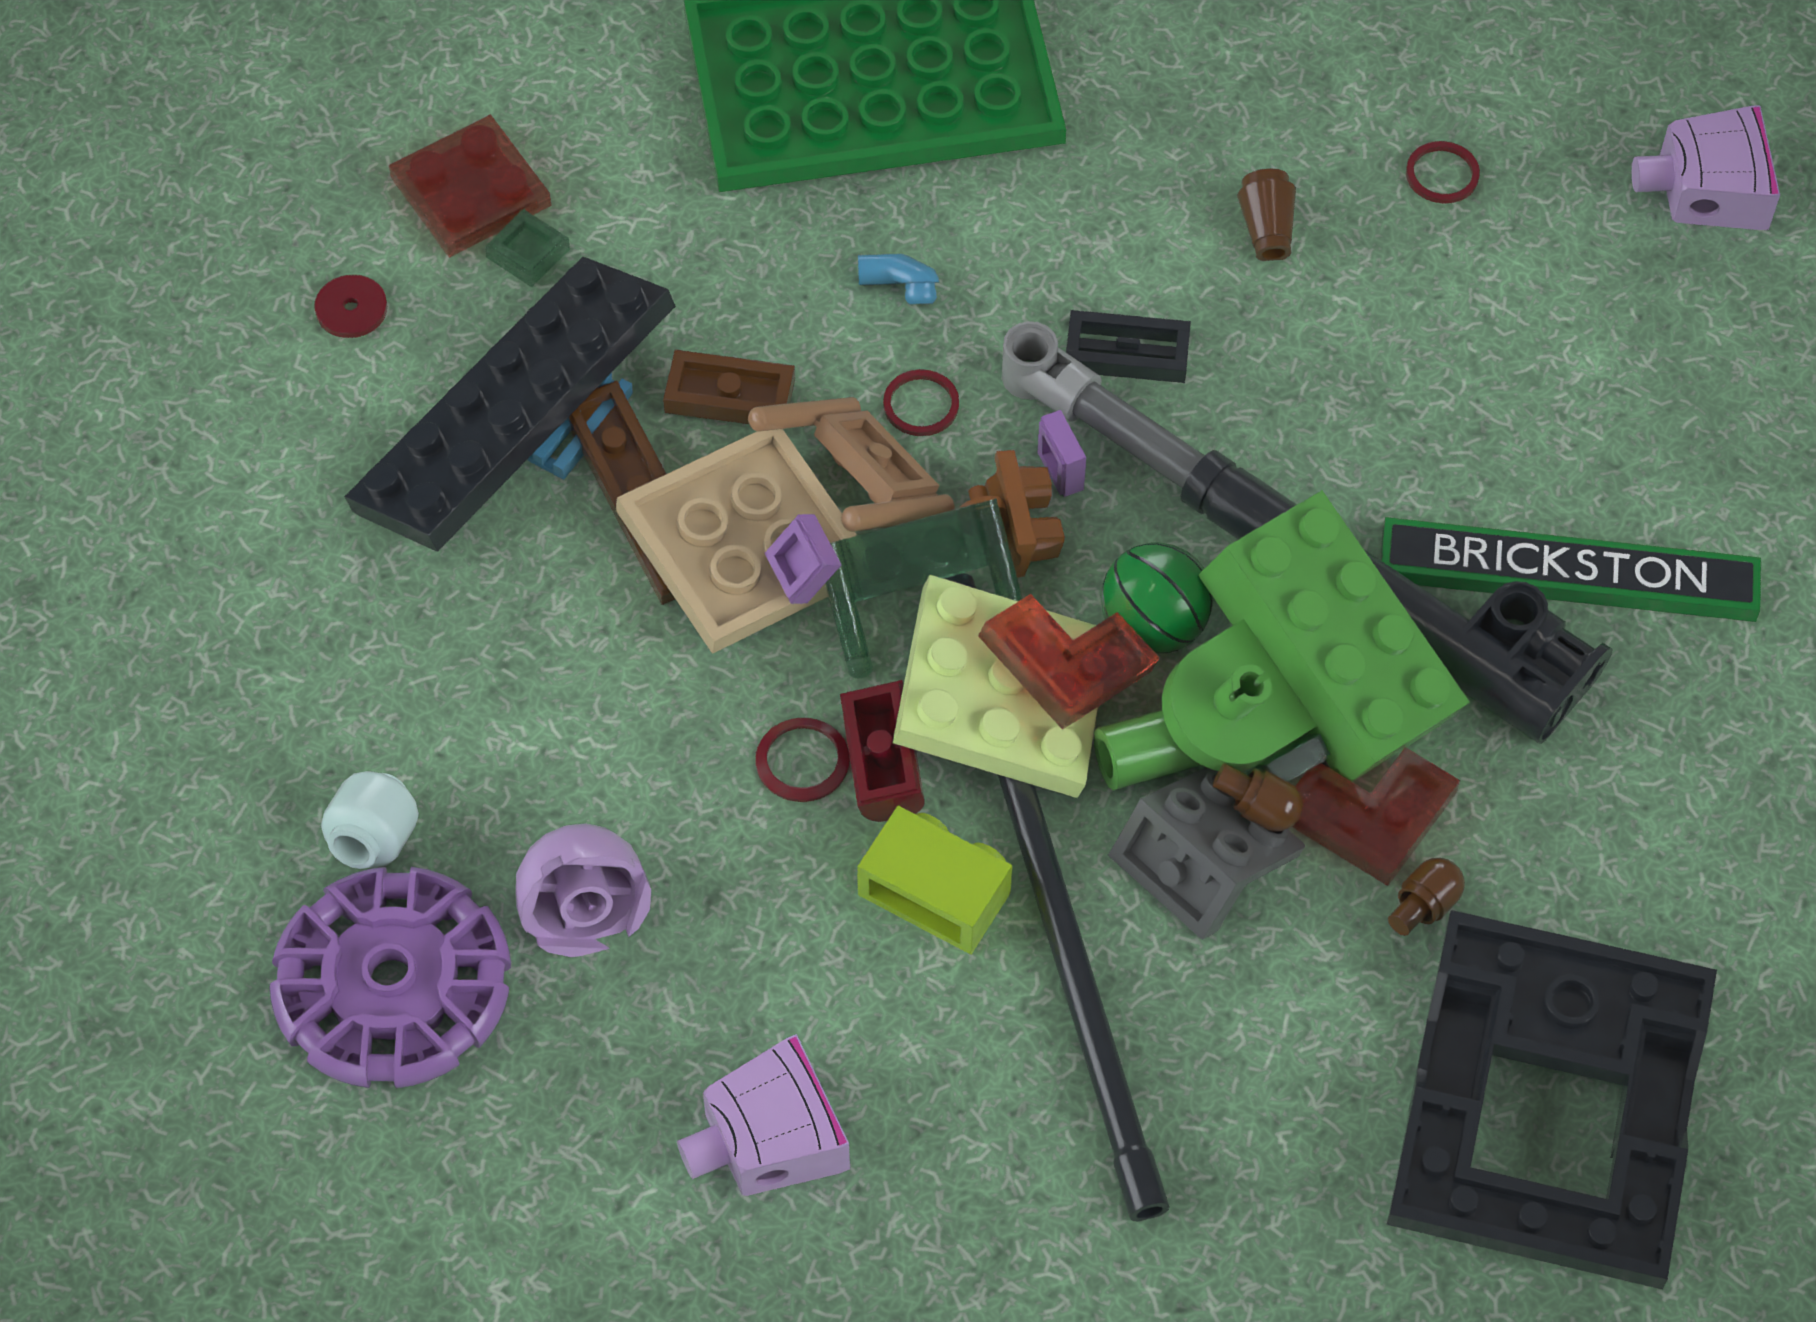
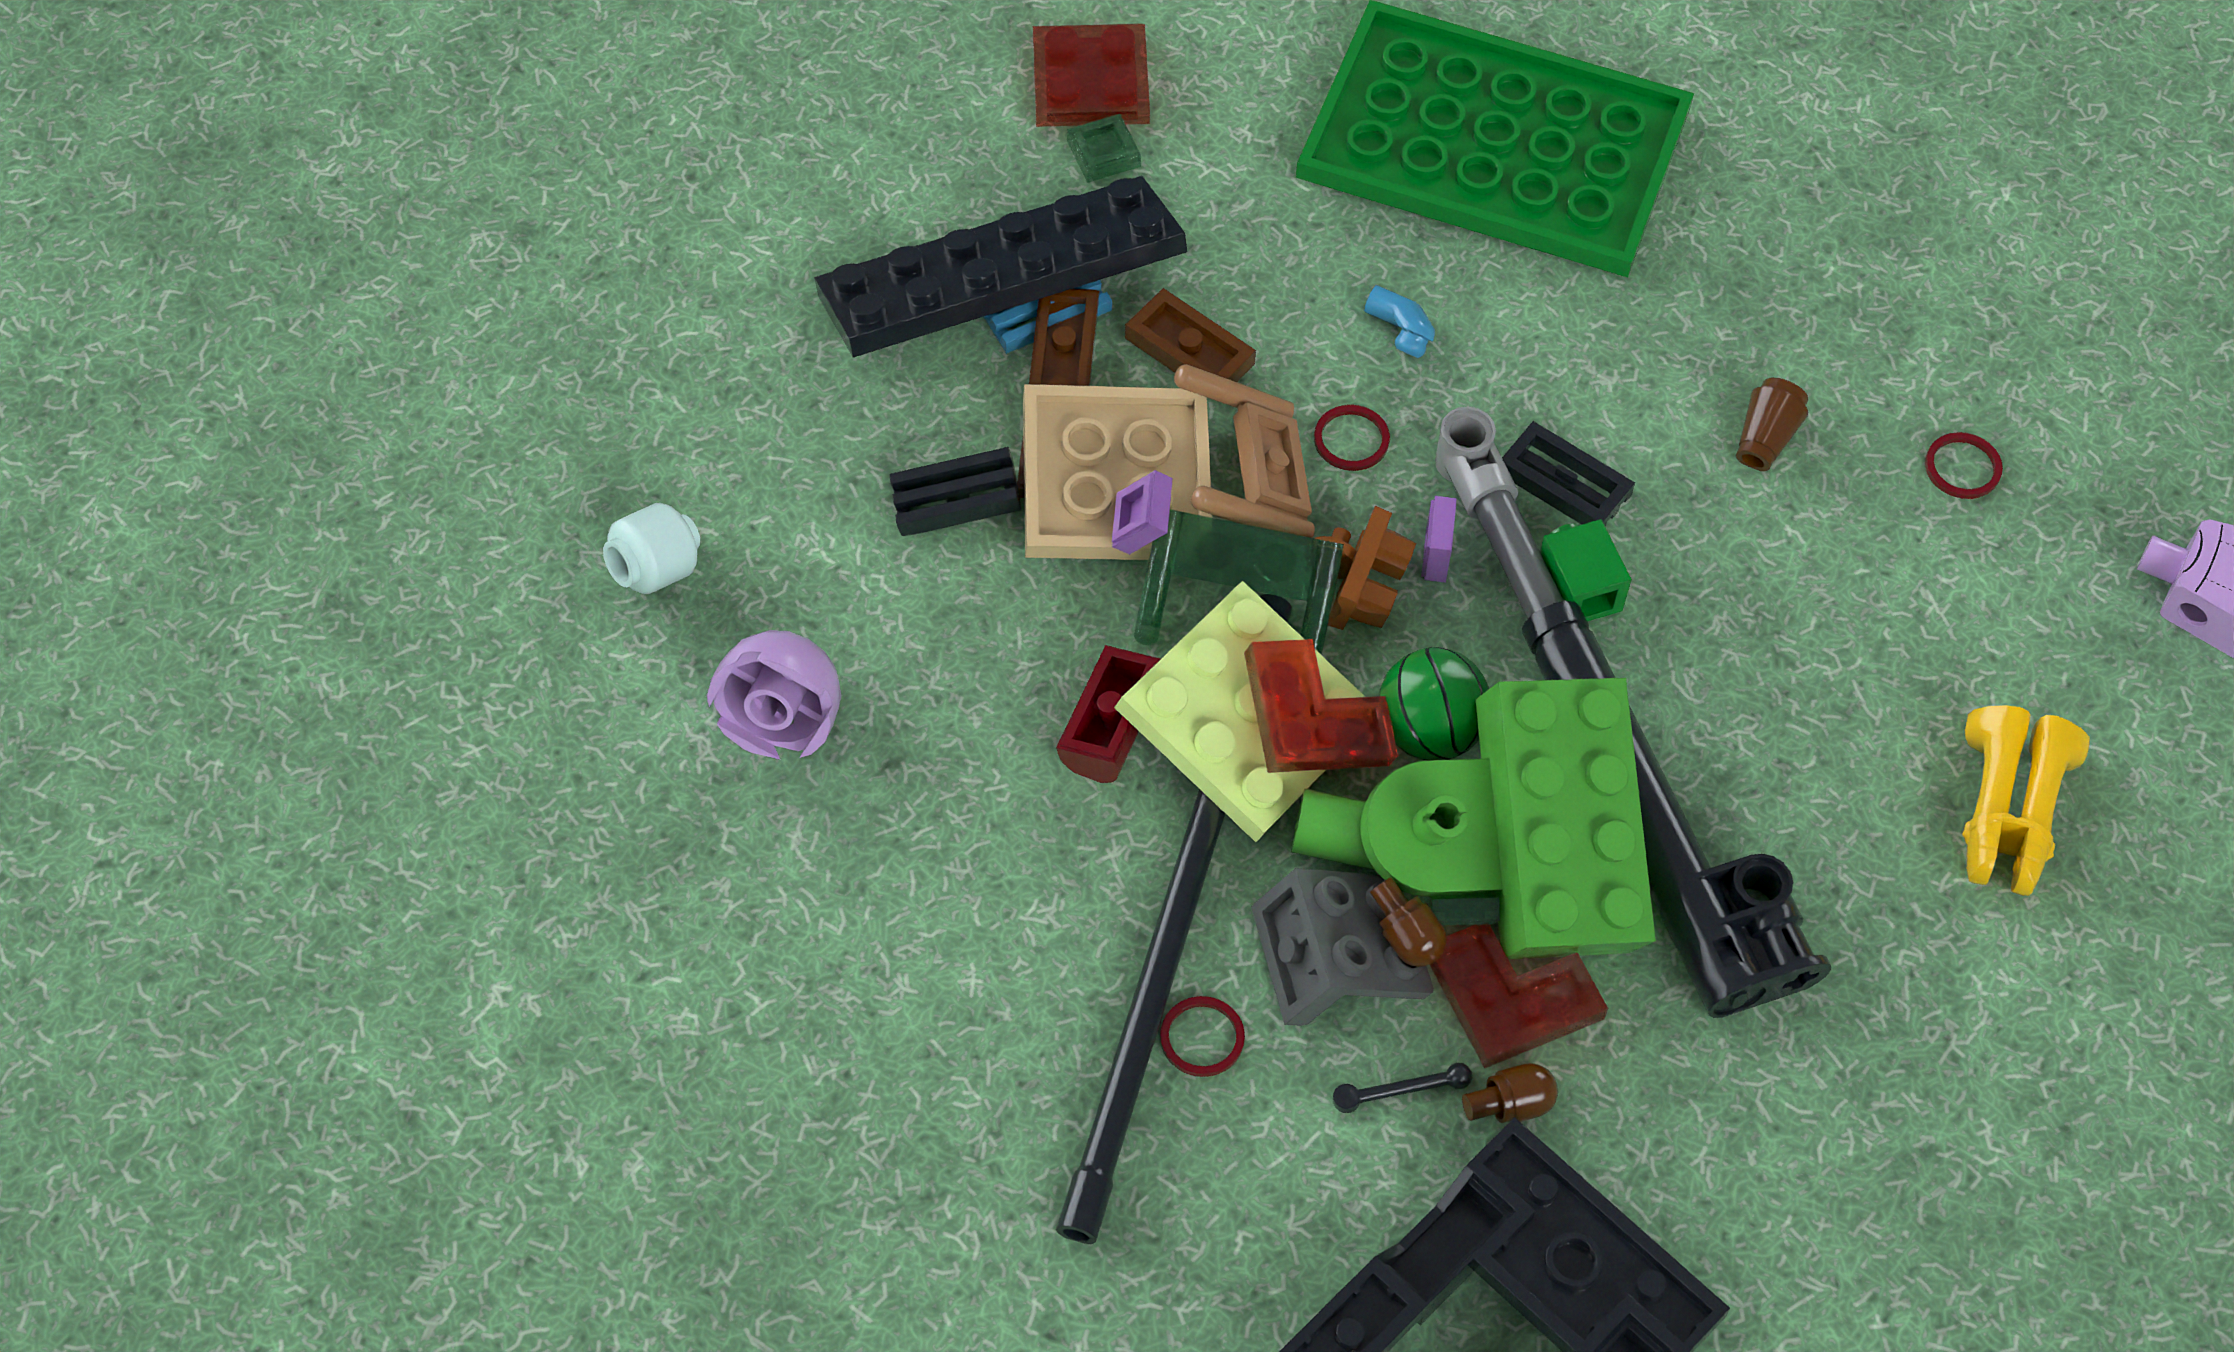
camera: 30 degrees right, 0 degrees up
(350, 289) = (931, 143): dark red wheel -> none
(395, 1010) = (593, 716): medium lavender plate -> none
(602, 606) = (954, 482): none -> black tile
(769, 1124) = (800, 975): lavender torso -> none
(802, 794) = (1029, 717): dark red piece -> none
(935, 878) = (1082, 844): lime brick -> none
(1141, 954) = (1195, 1070): none -> dark red piece
(1202, 413) = (1587, 568): none -> green brick
(1293, 972) = (1347, 1097): none -> black hinge
(1575, 568) = (1851, 879): tile -> none
(1667, 374) = (2054, 748): none -> yellow piece

